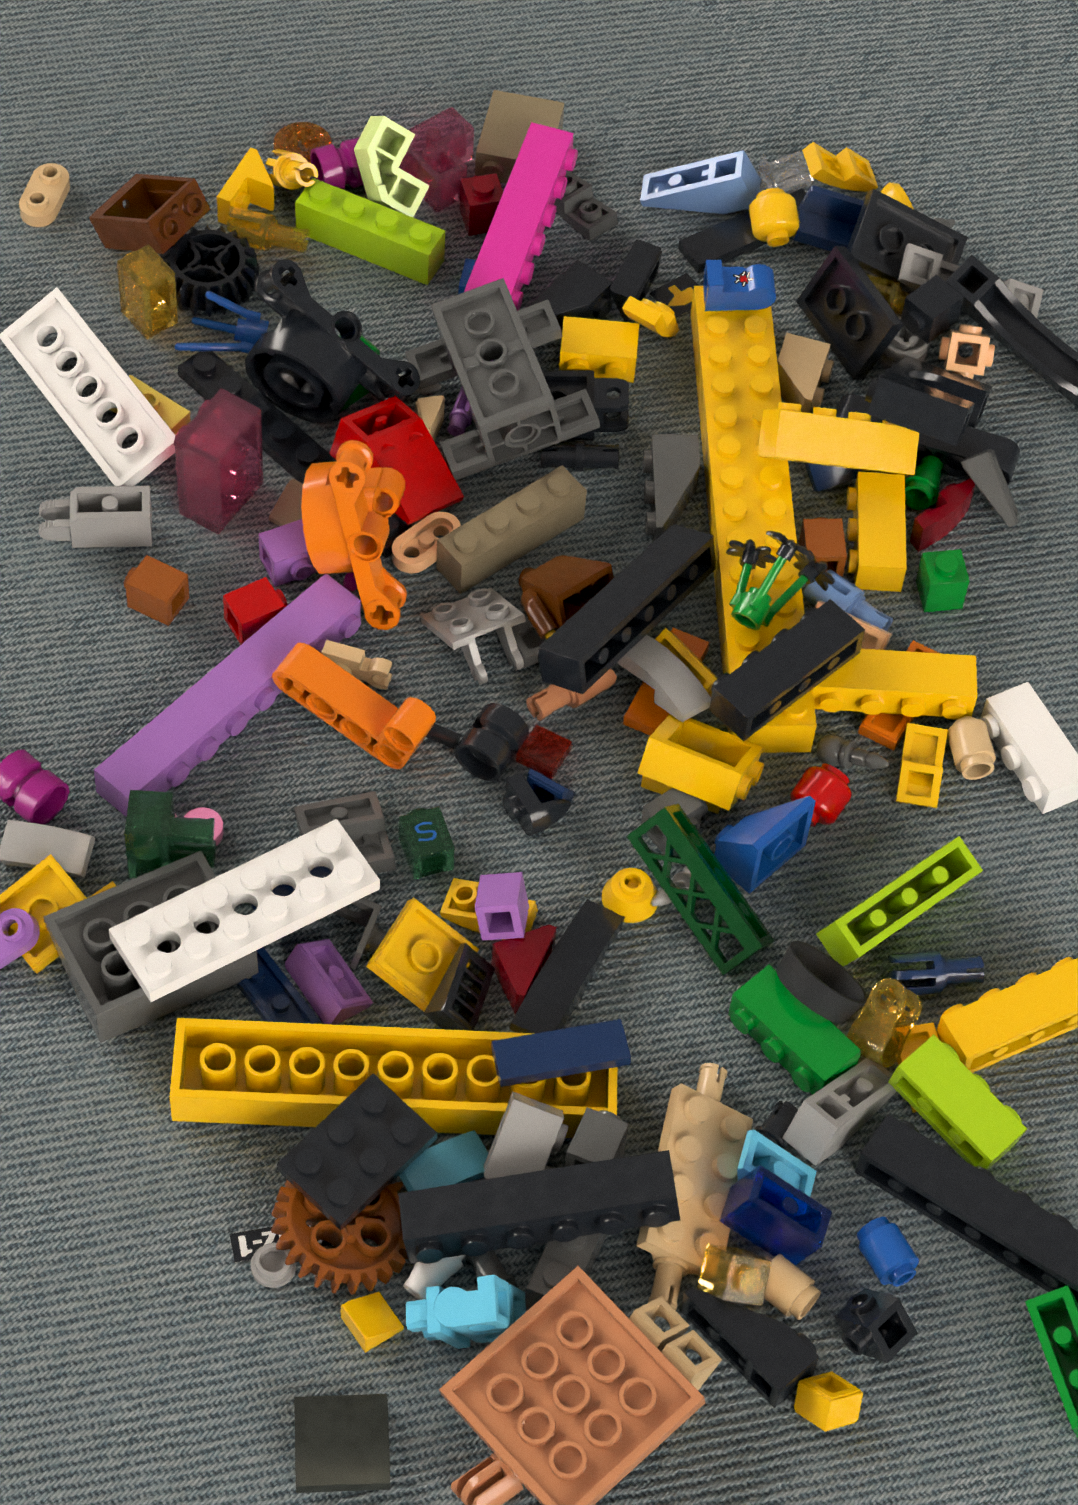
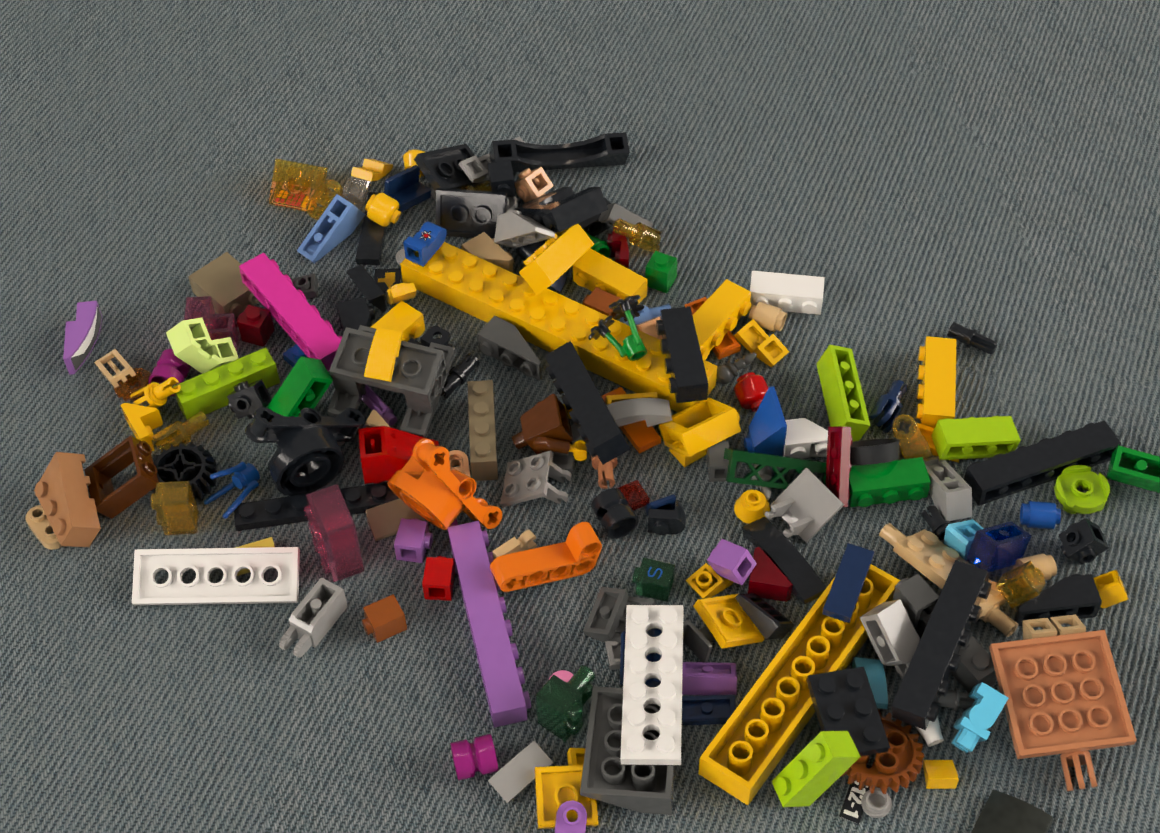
camera: 50 degrees left, 5 degrees down
(78, 186) = (67, 502): none -> medium nougat wedge
(244, 1151) = (815, 768): none -> lime brick
(312, 112) = (120, 375): none -> tan tile
(329, 50) = (81, 335): none -> medium lavender slope
(361, 264) = (248, 398): none -> black brick
(397, 302) = (301, 388): none -> green brick
(493, 336) = (383, 354): none -> yellow slope
(672, 951) = (805, 506): none -> light grey plate
(740, 138) = (323, 197): none -> clear yellow plate
(747, 107) = (295, 183): none -> clear yellow slope
(756, 953) = (838, 462): none -> dark red plate
(786, 895) = (805, 439): none -> white slope
(852, 371) = (519, 230): none -> light grey slope
(977, 513) = (639, 235): none -> clear yellow arm
(977, 1313) = (1076, 501): none -> lime plate

